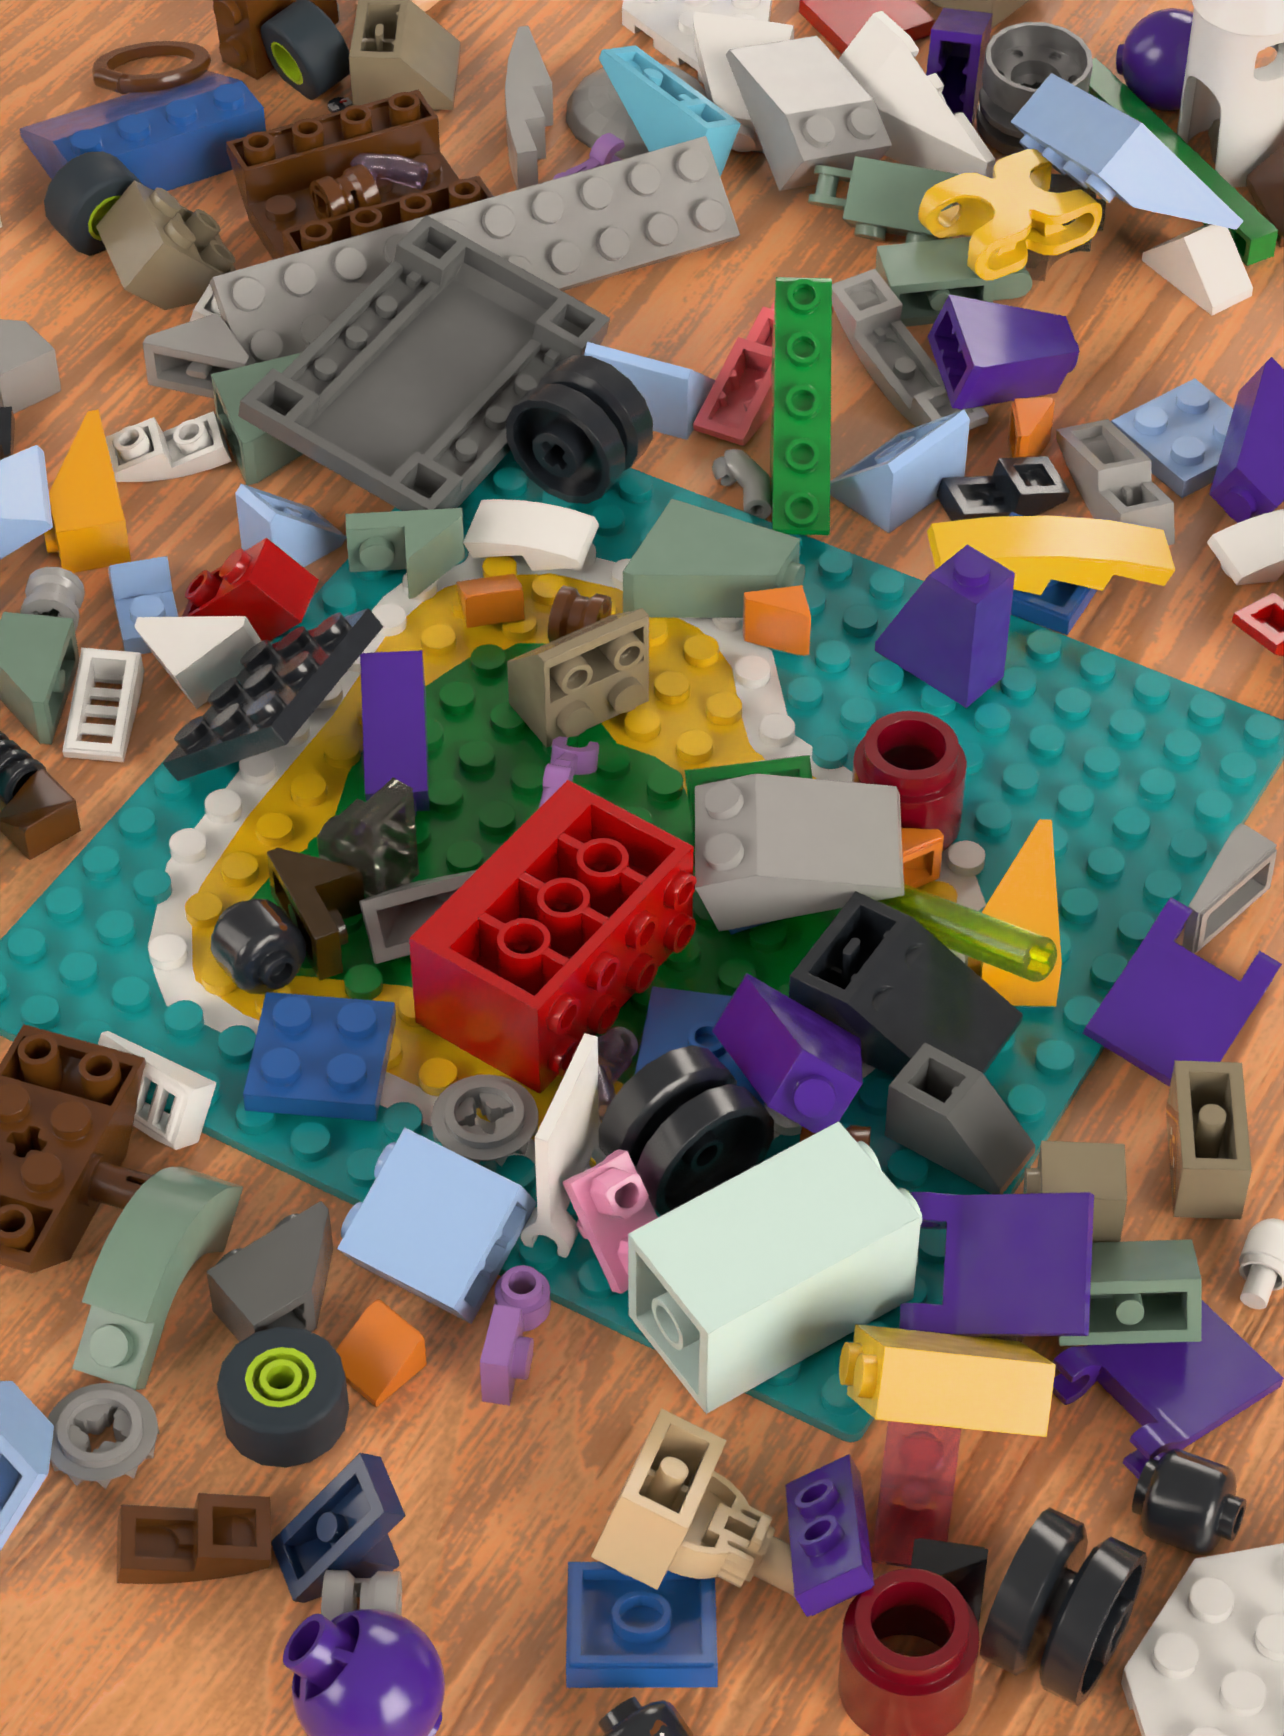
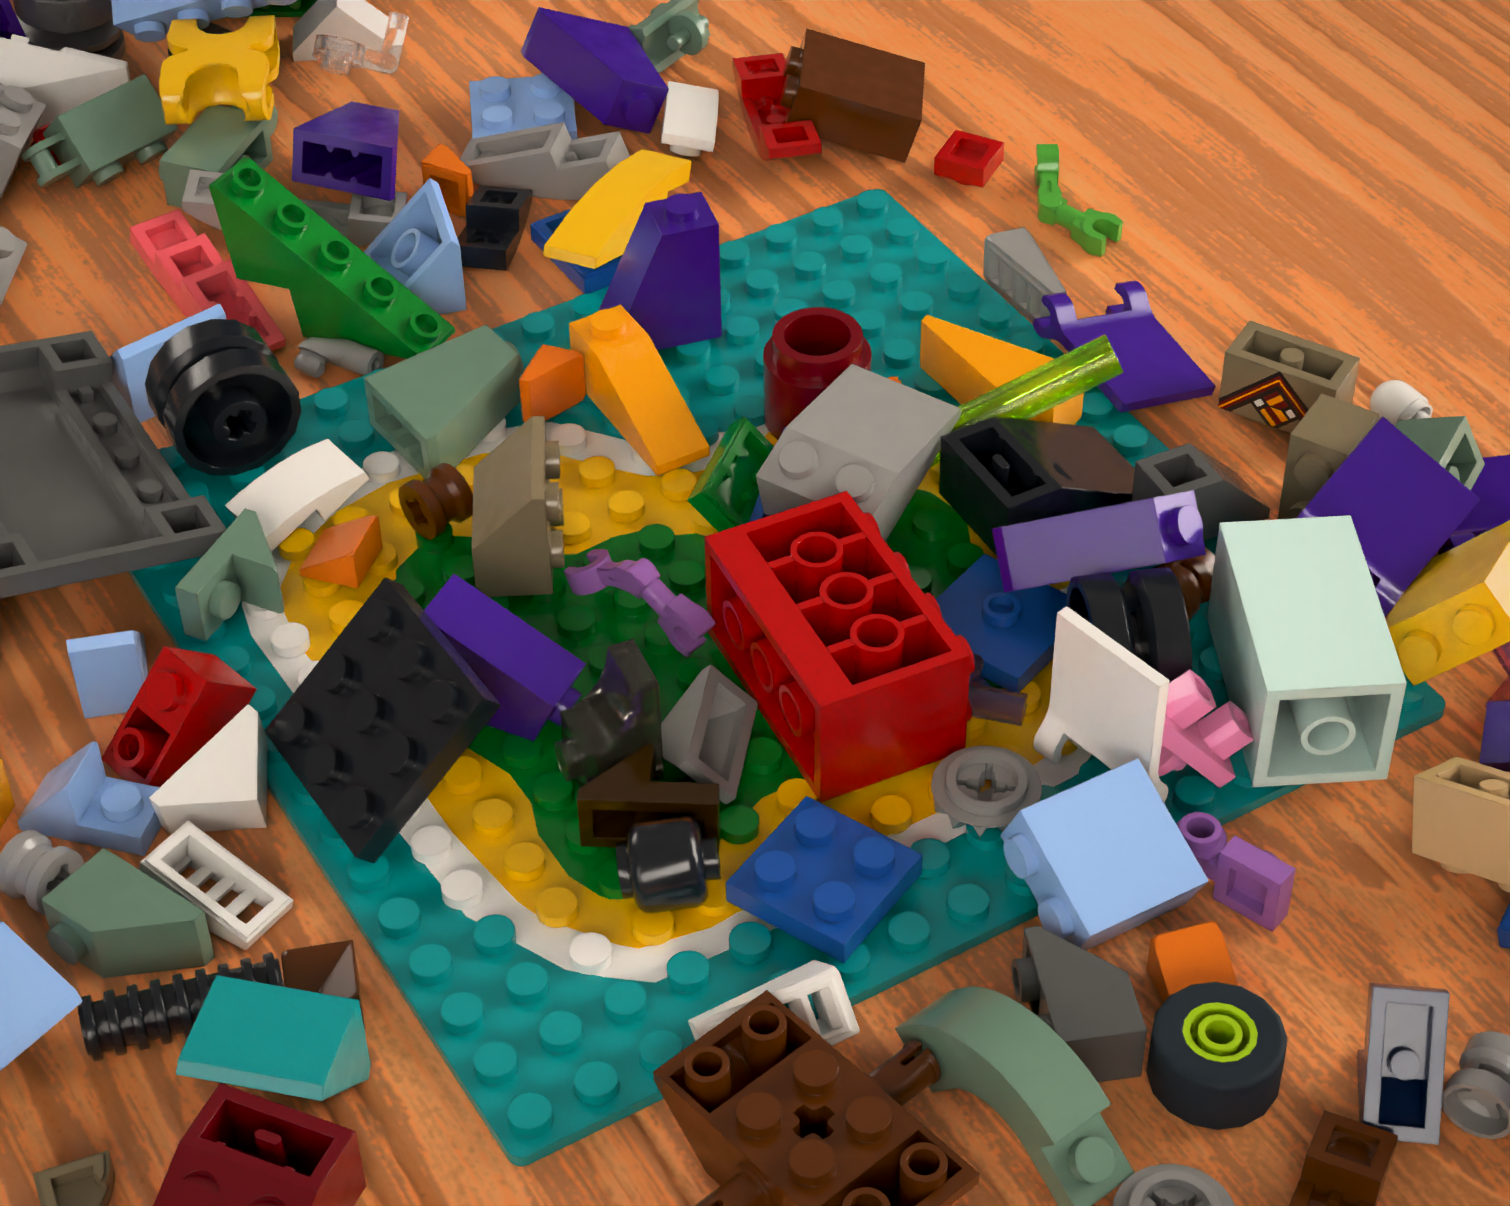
camera: 60 degrees left, 5 degrees down
(818, 675) = (636, 390): none -> light orange slope
(1157, 281) = (341, 54): none -> clear plate

